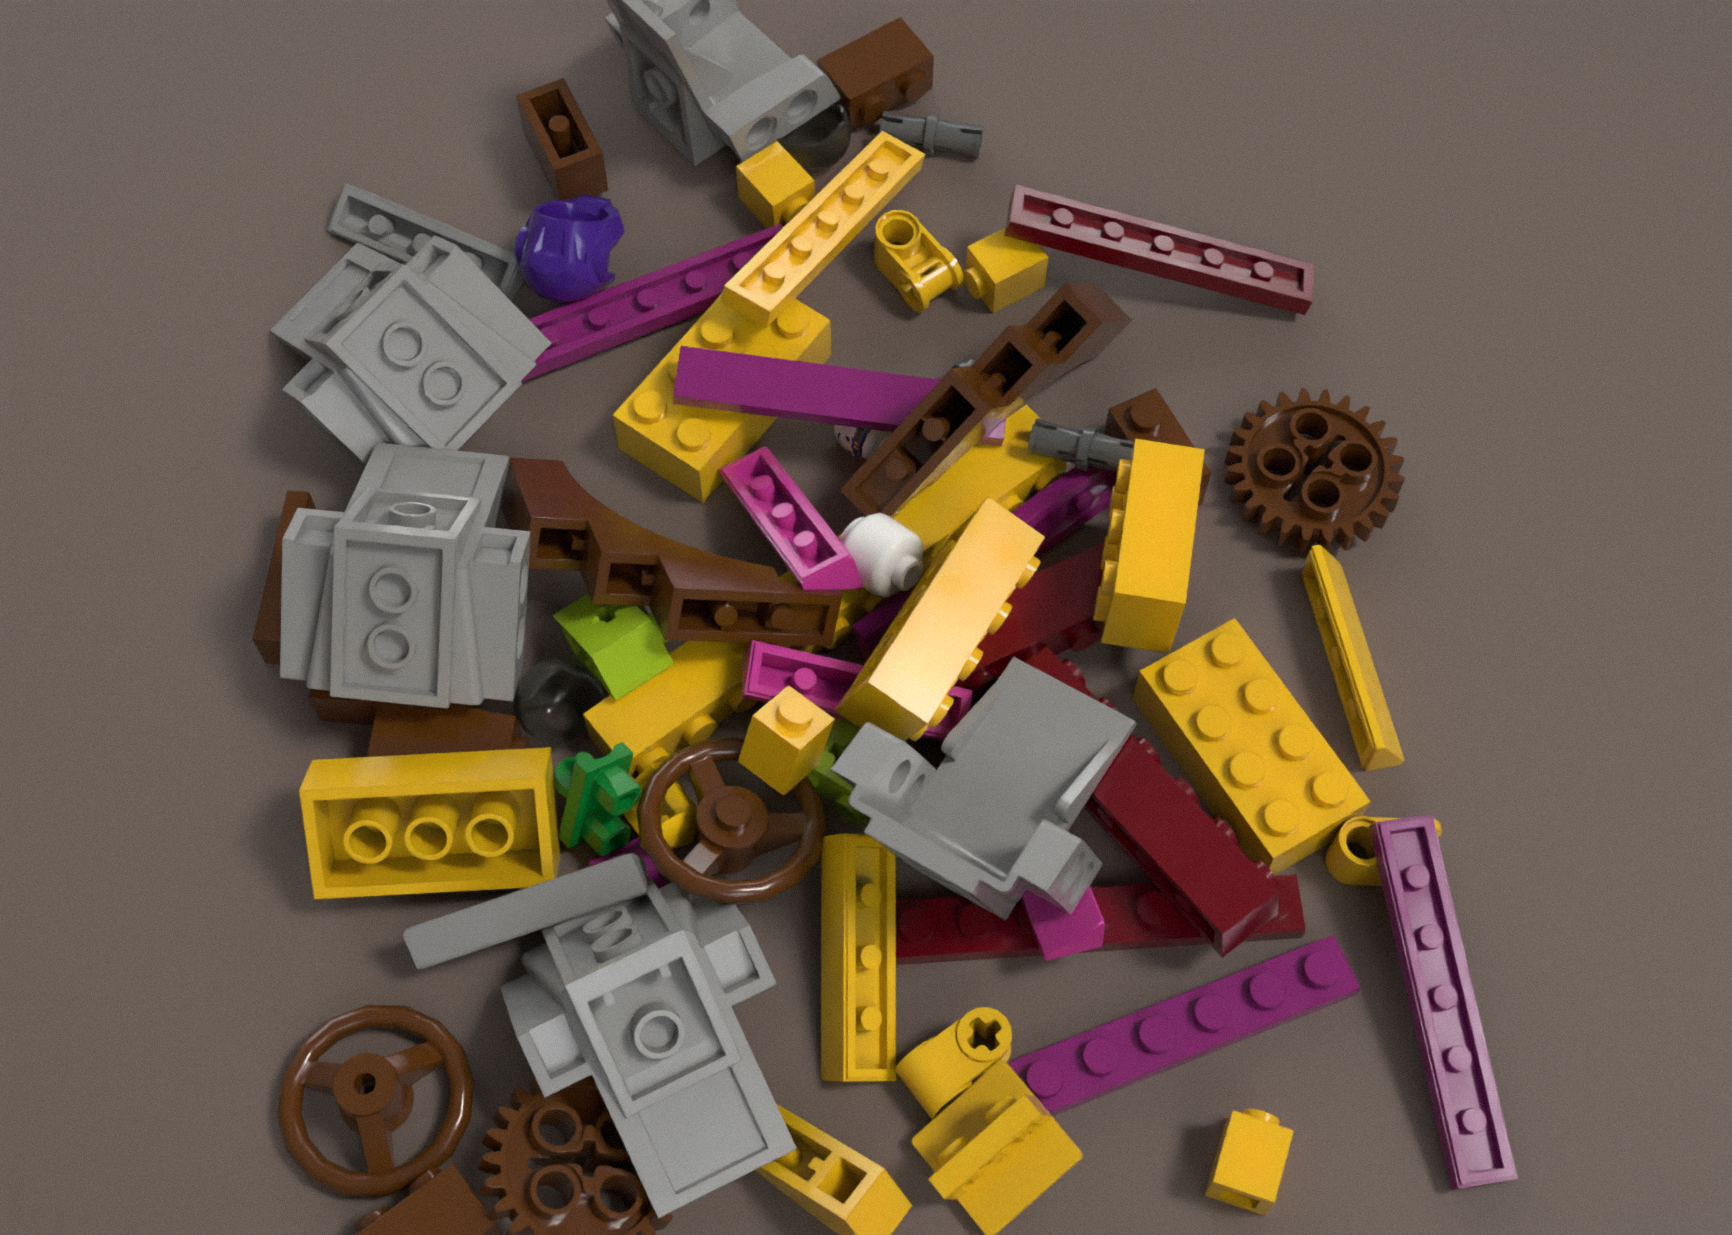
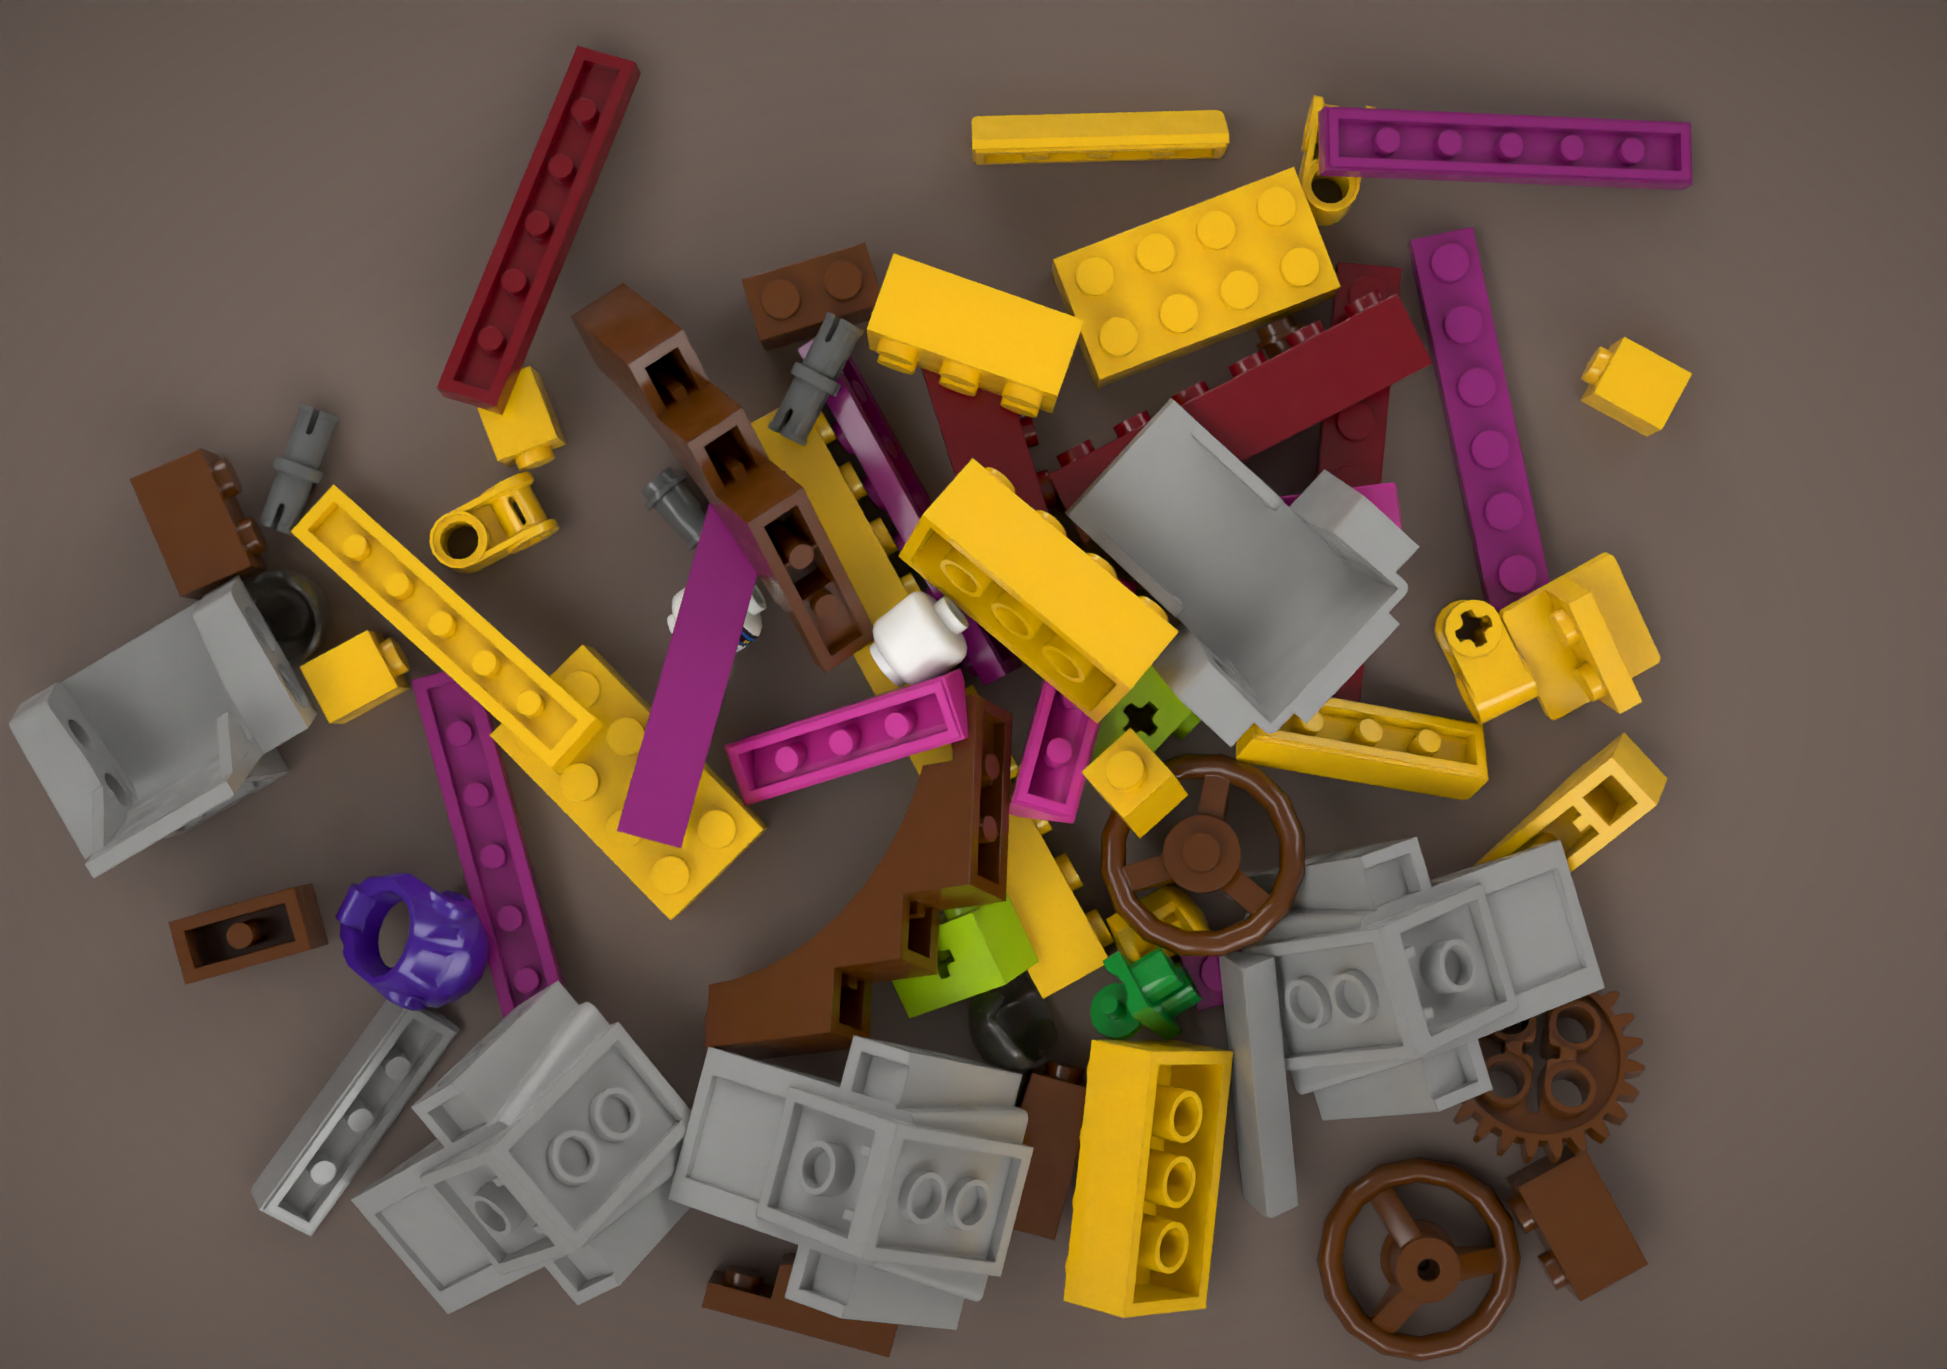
camera: 75 degrees left, 25 degrees up
(1353, 498) = (904, 84): reddish brown gear -> none

